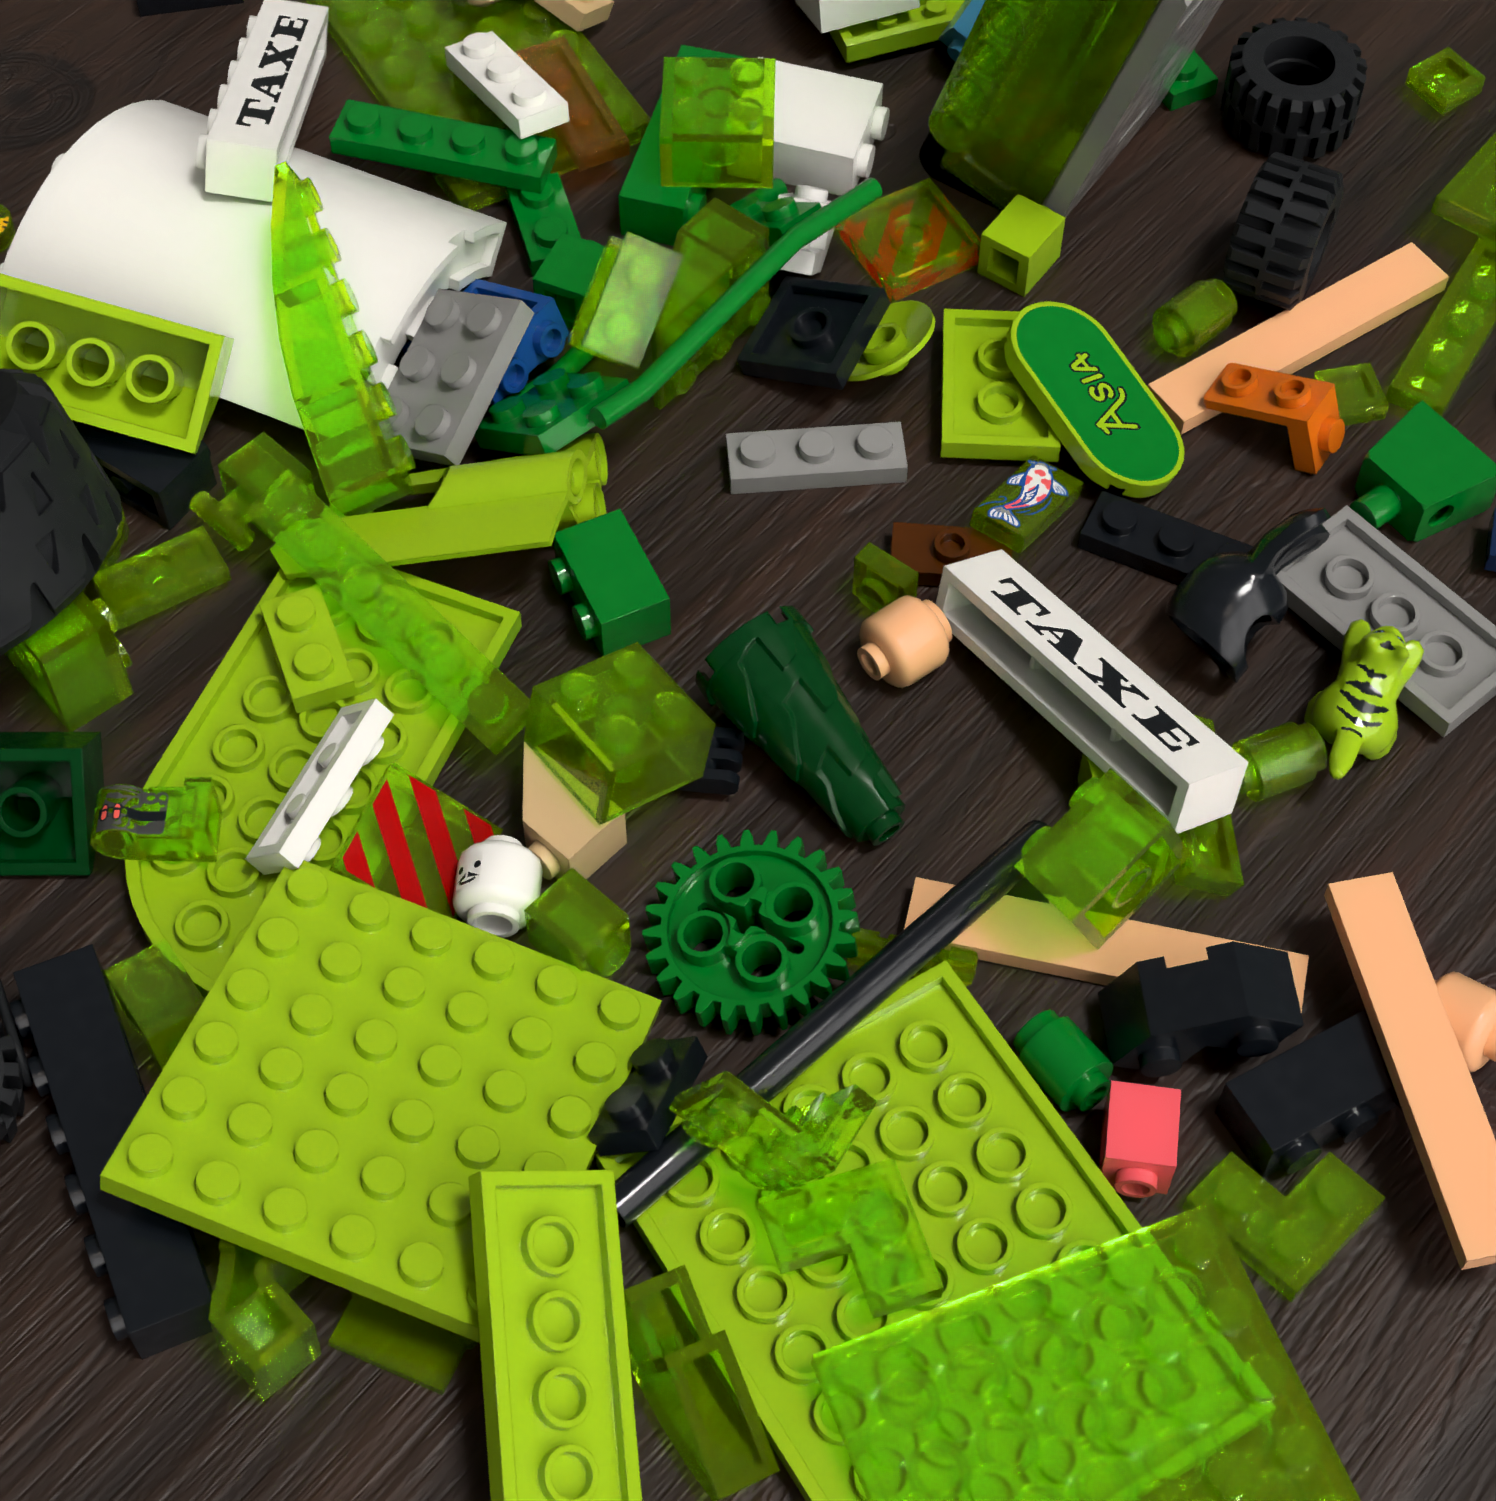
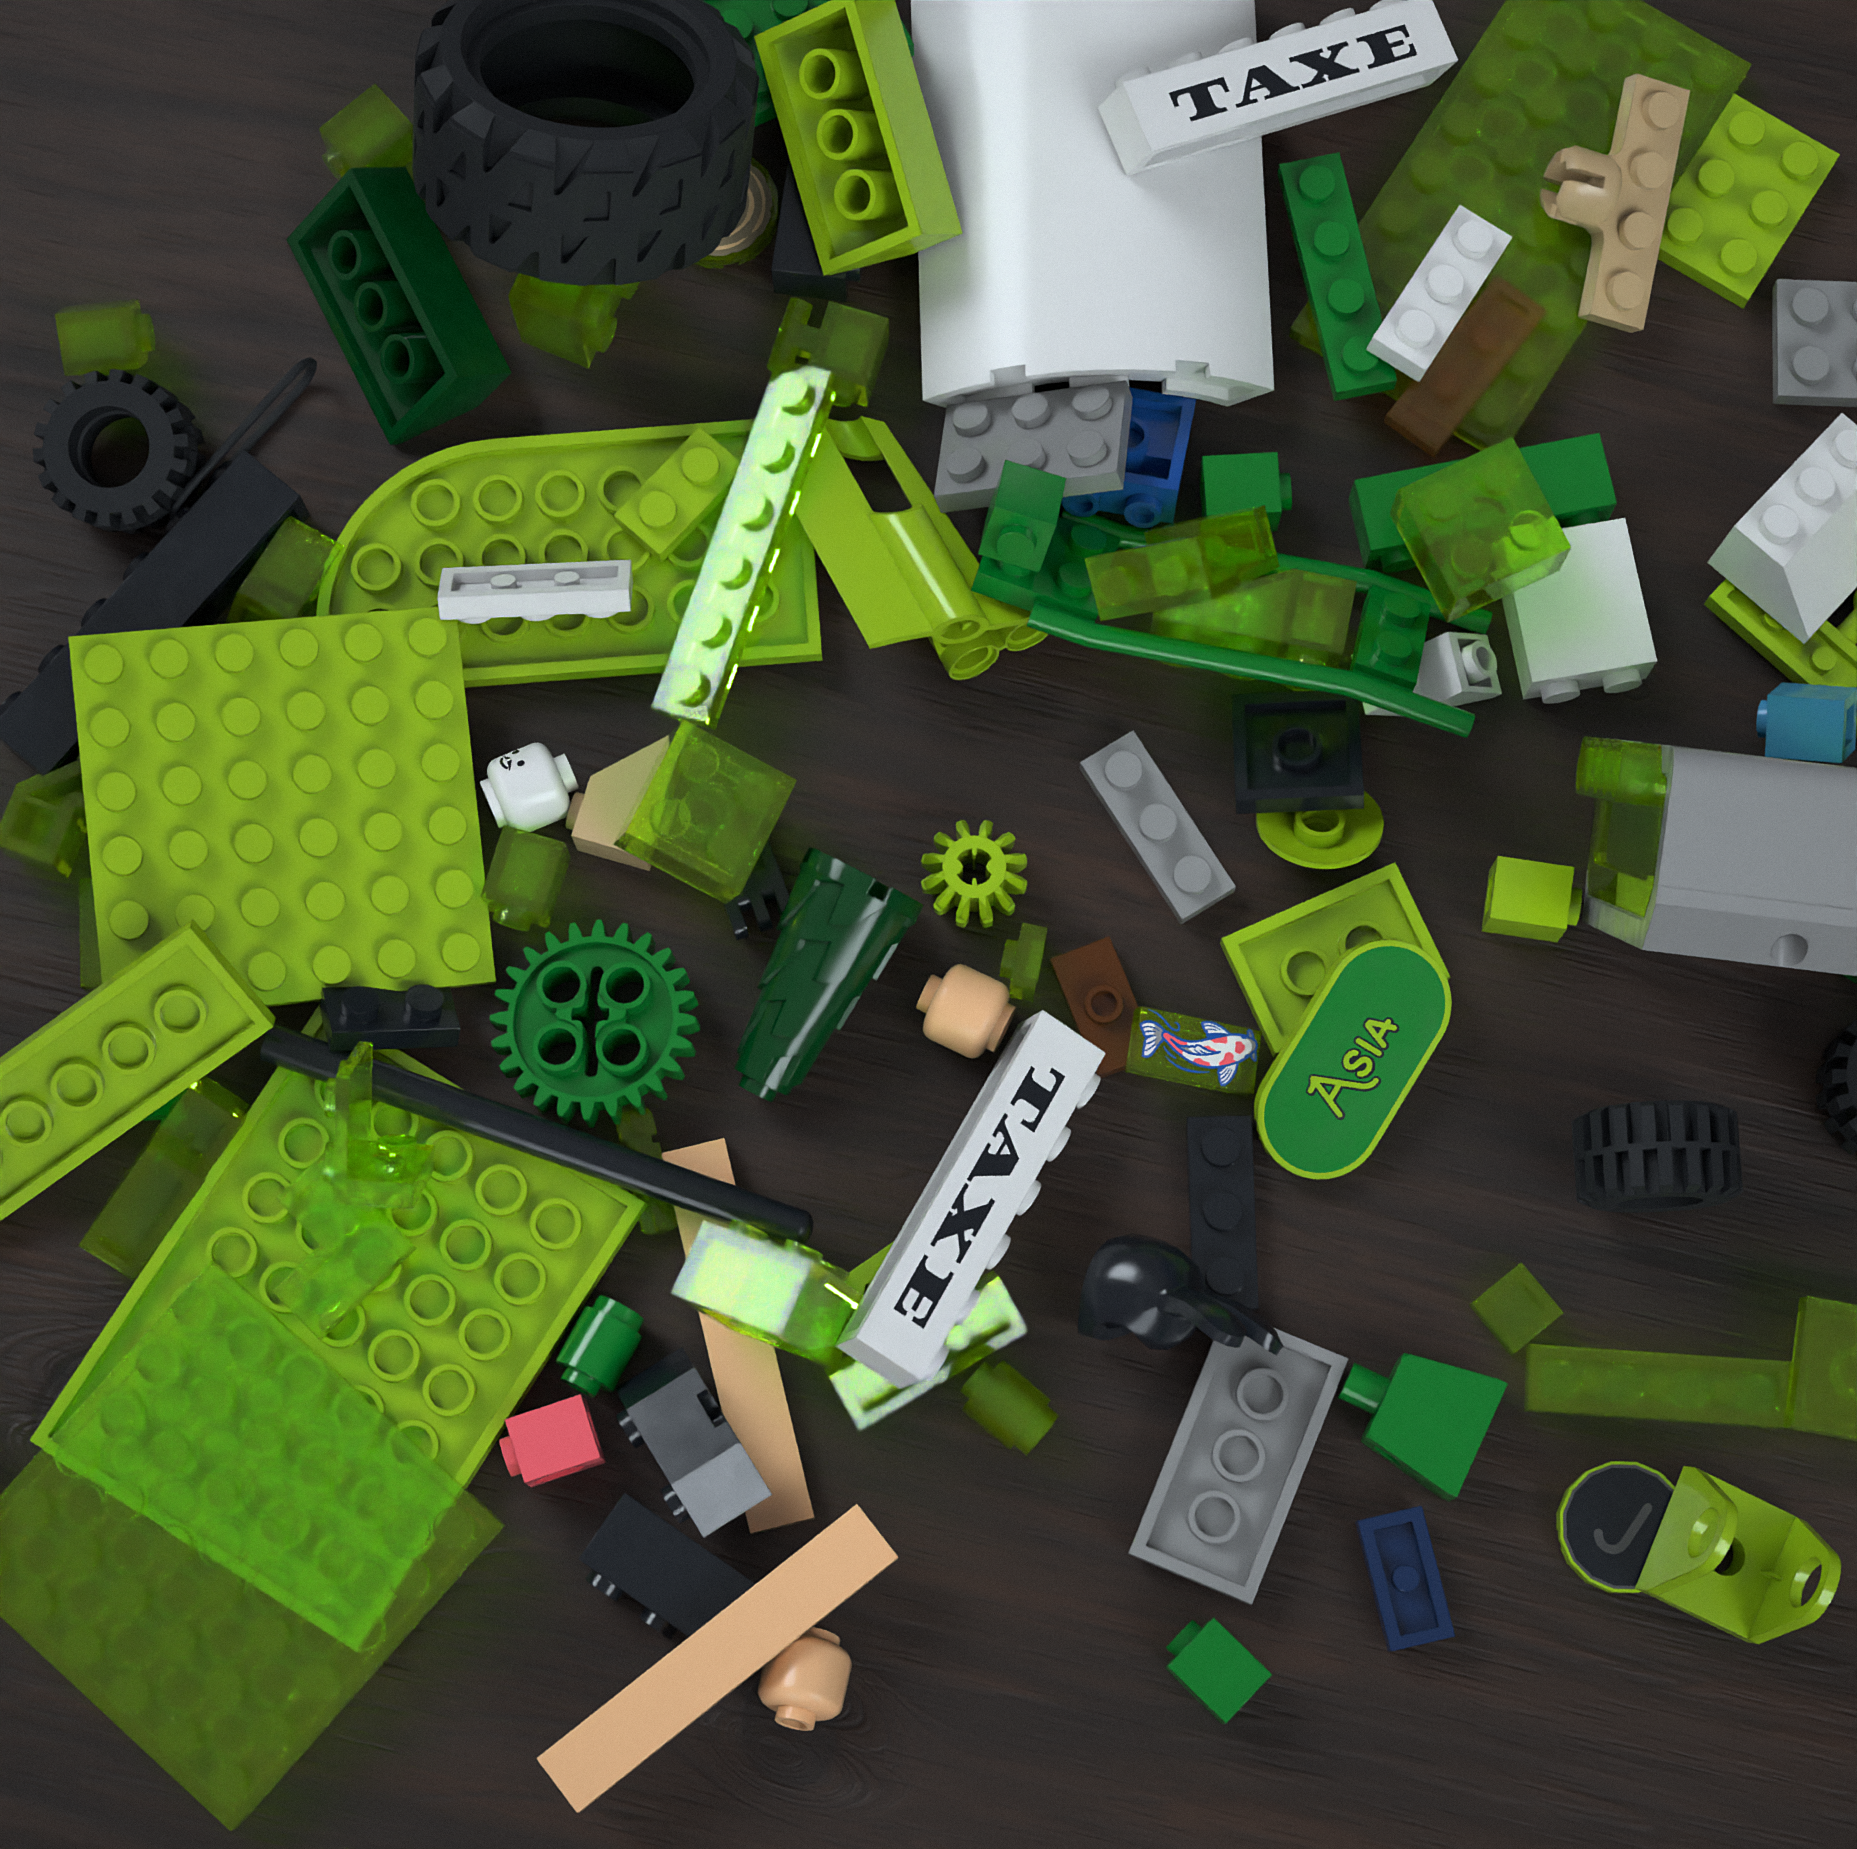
camera: 65 degrees right, 20 degrees up
(158, 822) = (437, 478): clear neon green leg -> none
(161, 577) = (706, 321): clear neon green plate -> none
(330, 359) = (972, 328): clear neon green slope -> none
(411, 841) = (528, 695): tile -> none
(512, 383) = (1022, 516): none -> green brick
(541, 219) = (1311, 426): green plate -> none
(610, 583) = (897, 715): green brick -> none
(784, 579) = (974, 849): none -> lime gear
(911, 240) = (1491, 785): clear neon green tile -> none
(1194, 317) = (1523, 1112): clear neon green brick -> none
(1285, 399) = (1437, 1245): orange bracket -> none
(1291, 1235) = (531, 1597): clear neon green plate -> none
(1307, 330) = (1568, 1231): light nougat tile -> none
(1360, 705) = (1101, 1461): lime animal -> none

